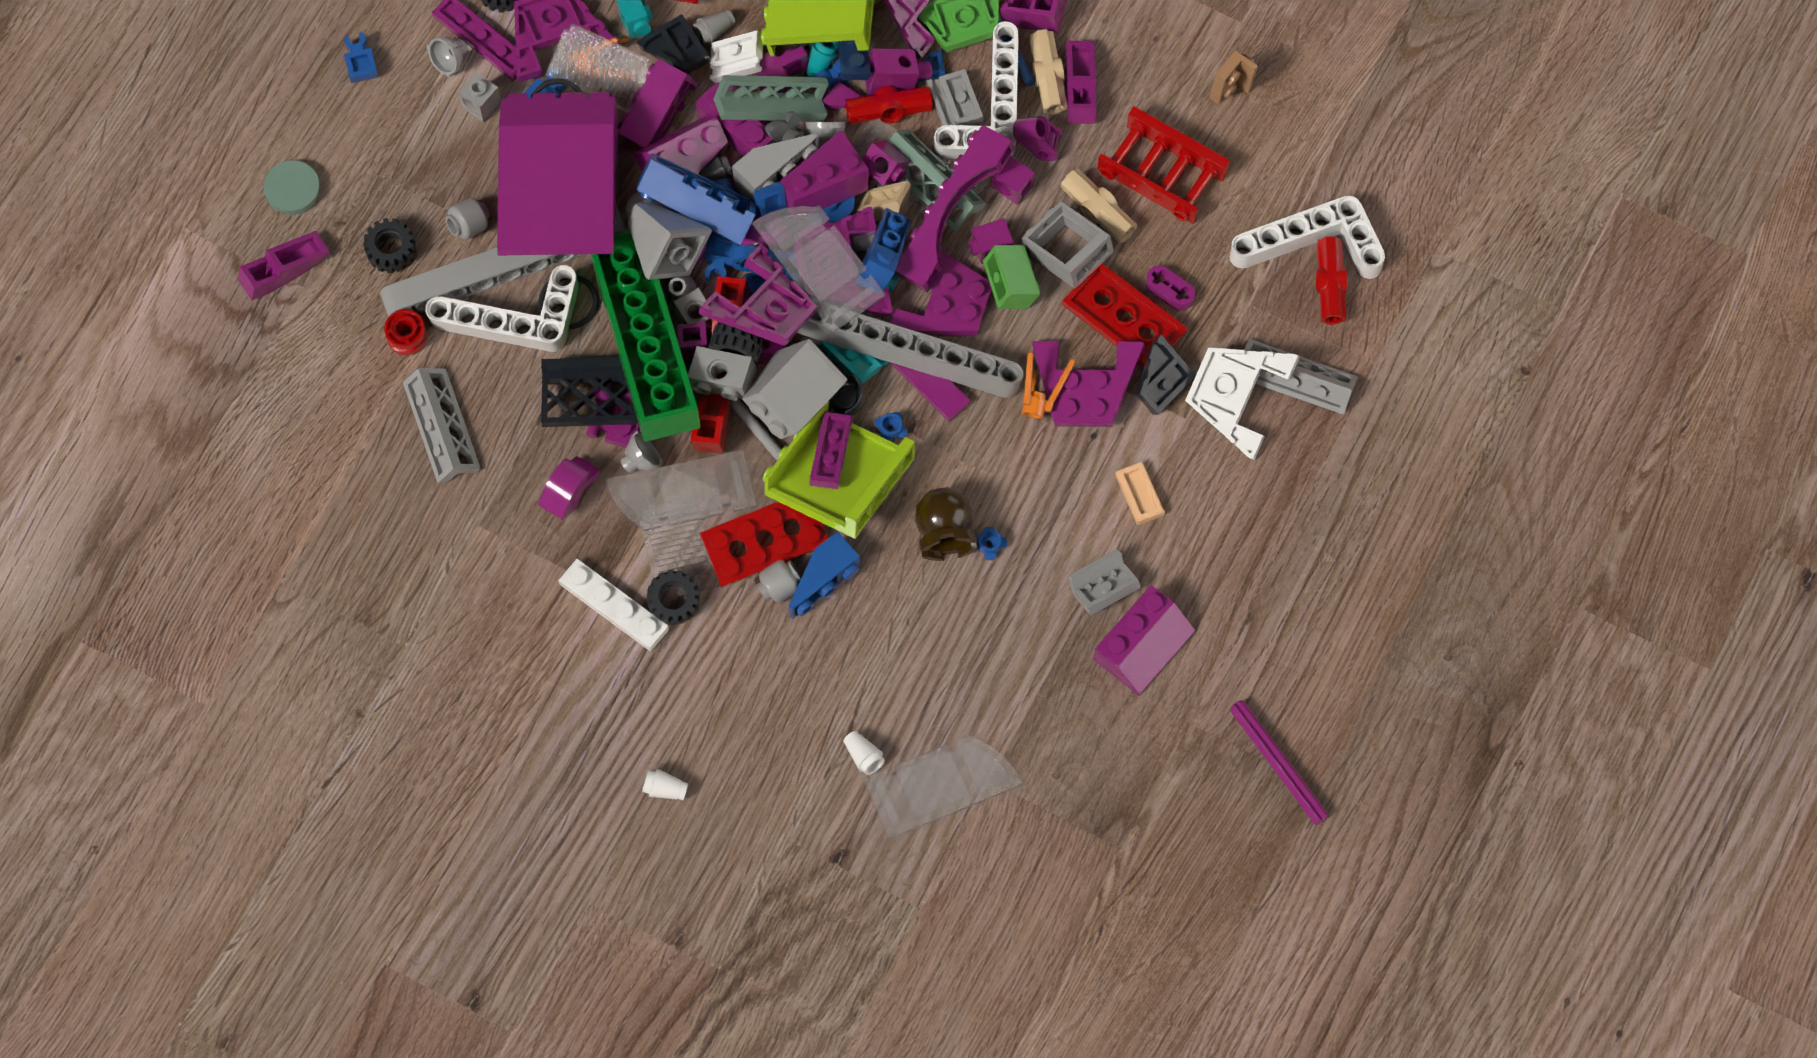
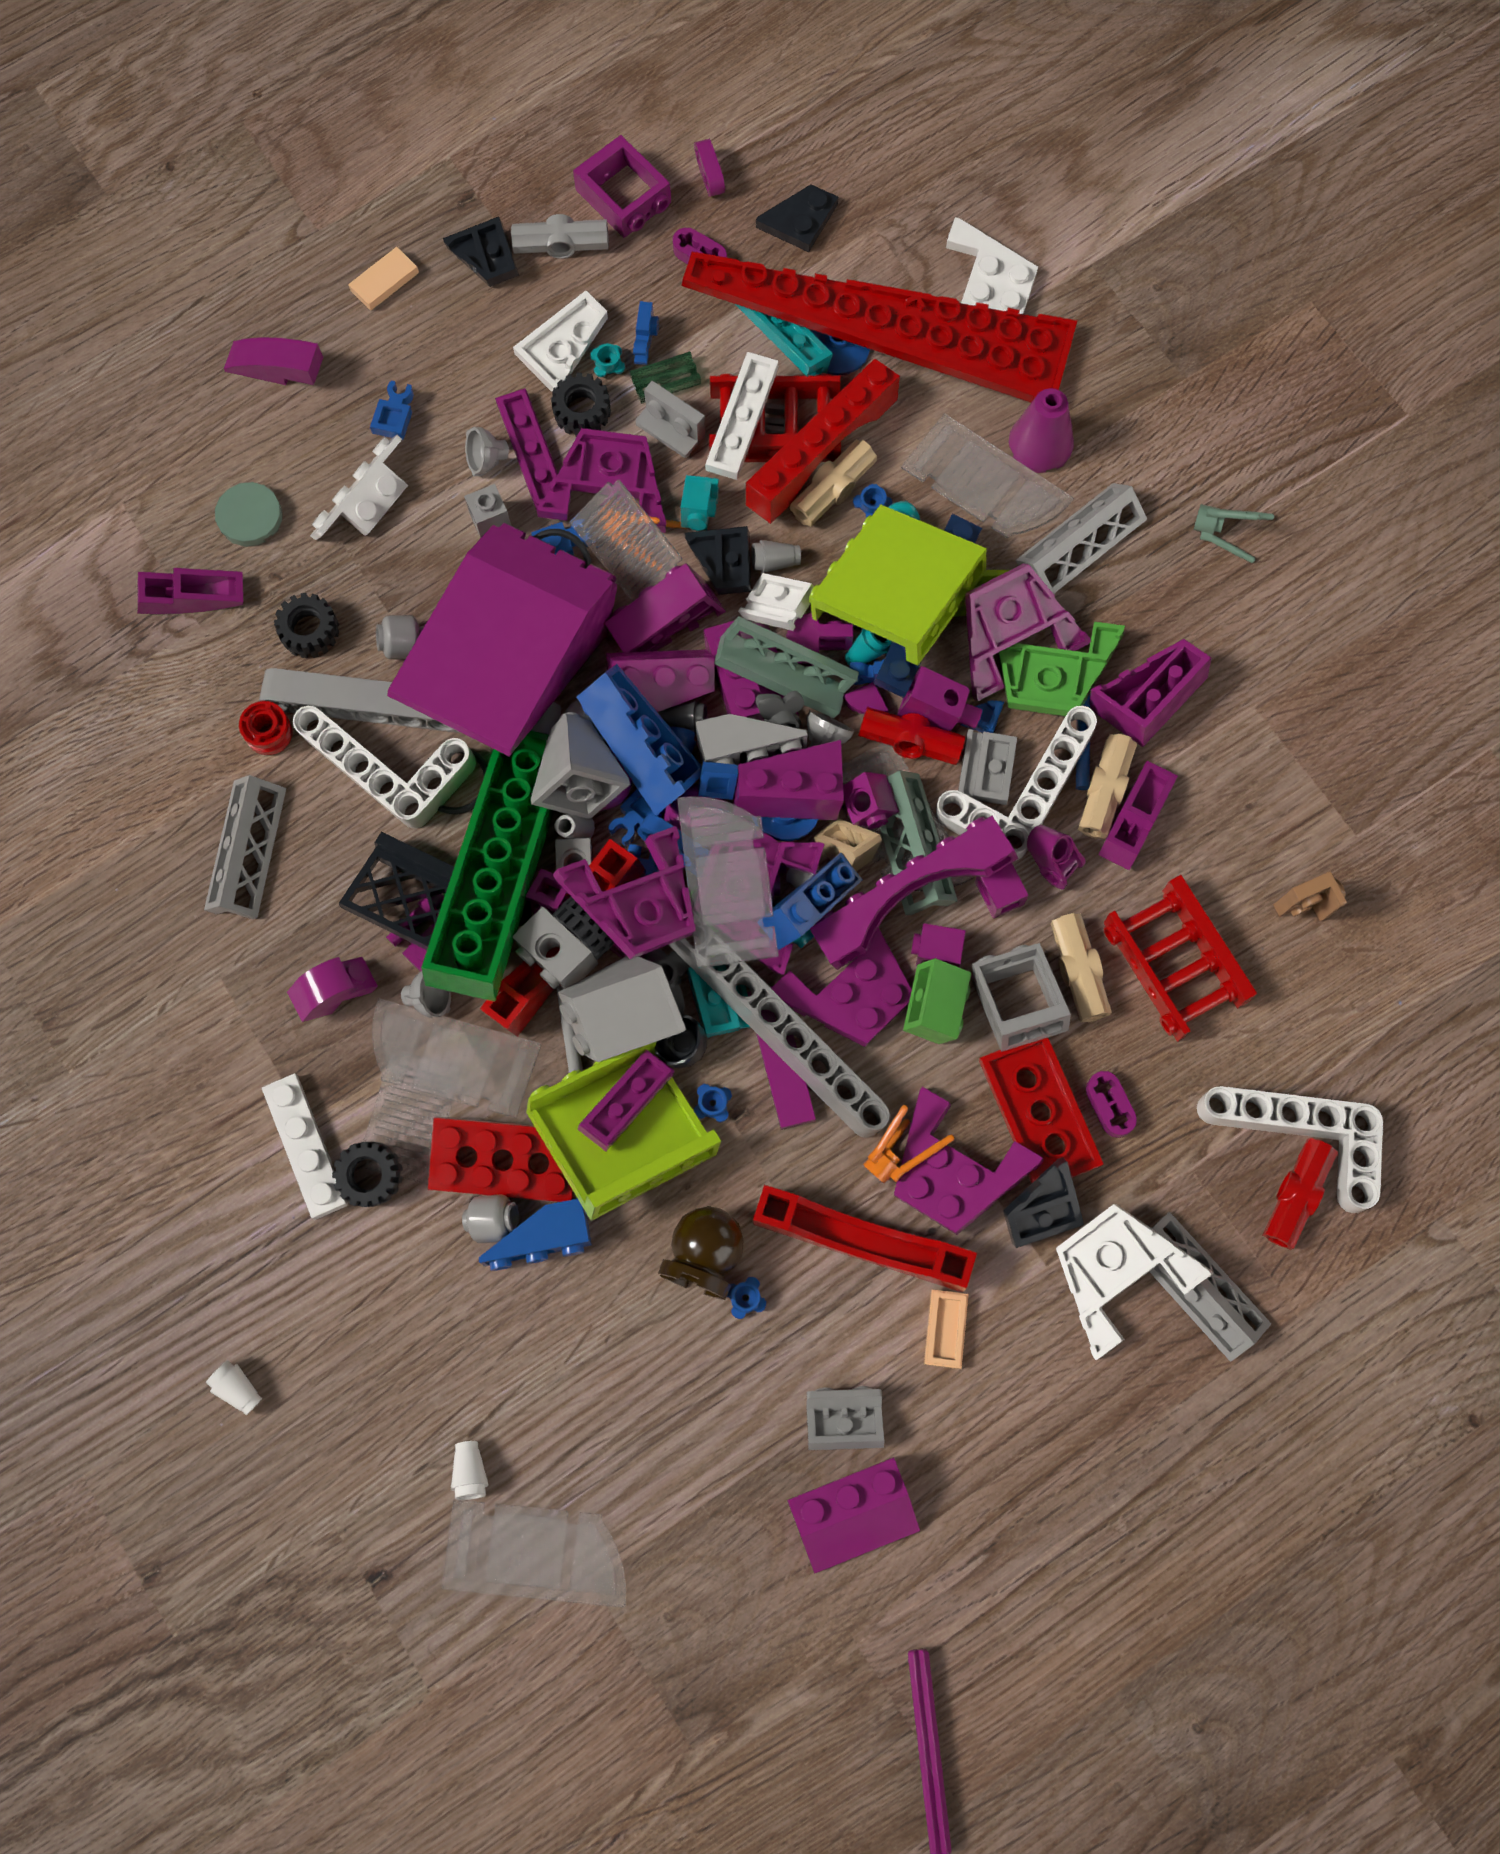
camera: 30 degrees right, 5 degrees up
(241, 64) = (275, 360): none -> magenta slope
(377, 128) = (369, 495): none -> white bracket
(1096, 452) = (879, 1245): none -> red arch

